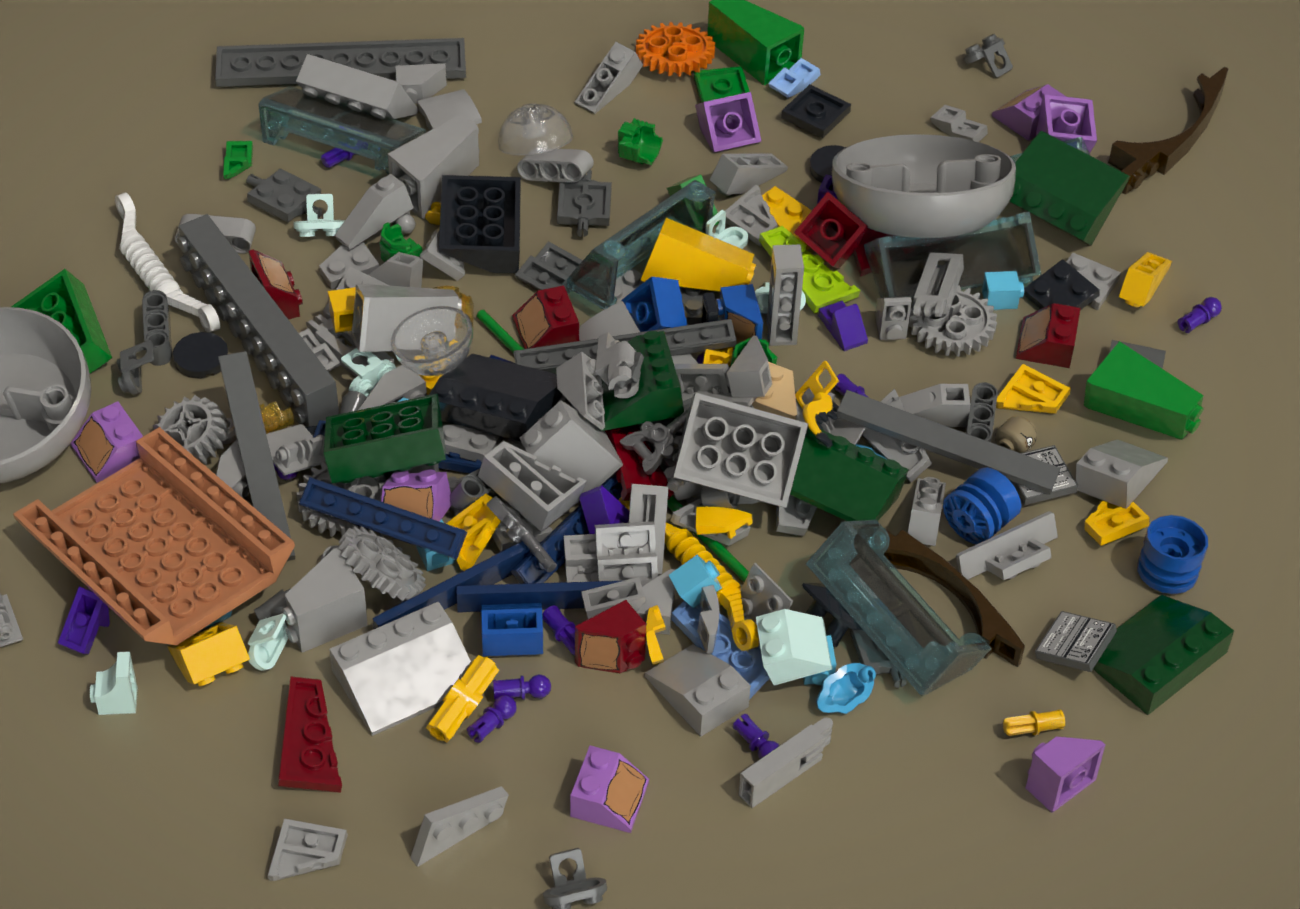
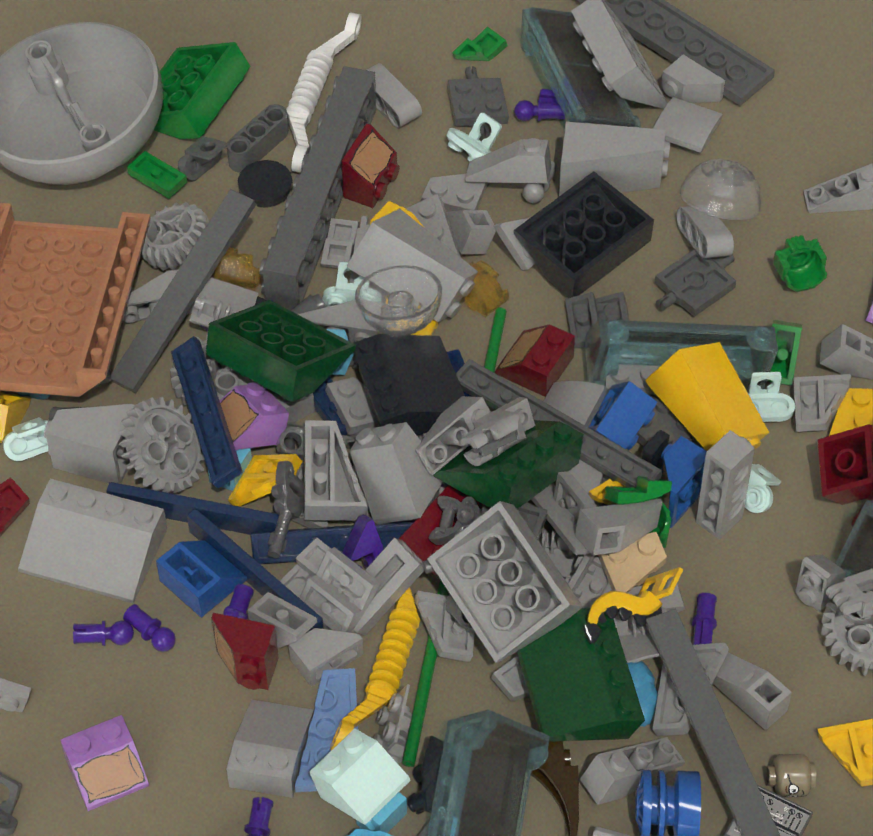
camera: 50 degrees right, 5 degrees up
(107, 442) = (122, 192): medium lavender slope -> none
(128, 400) = (157, 174): none -> green plate
(327, 176) = (526, 110): none -> dark purple pin
(393, 242) = (501, 202): green hair -> none
(462, 698) = (97, 598): yellow piece -> none
(653, 625) = (274, 675): yellow slope -> none
(692, 577) = (356, 659): medium azure brick -> none
(708, 618) = (328, 703): light grey slope -> none
(721, 520) = (442, 628): yellow slope -> none
(740, 339) = (644, 491): none -> green slope
(819, 284) = (798, 494): lime wing -> none
(844, 324) = (775, 555): dark purple slope -> none
(982, 411) = (785, 723): dark grey beam -> none

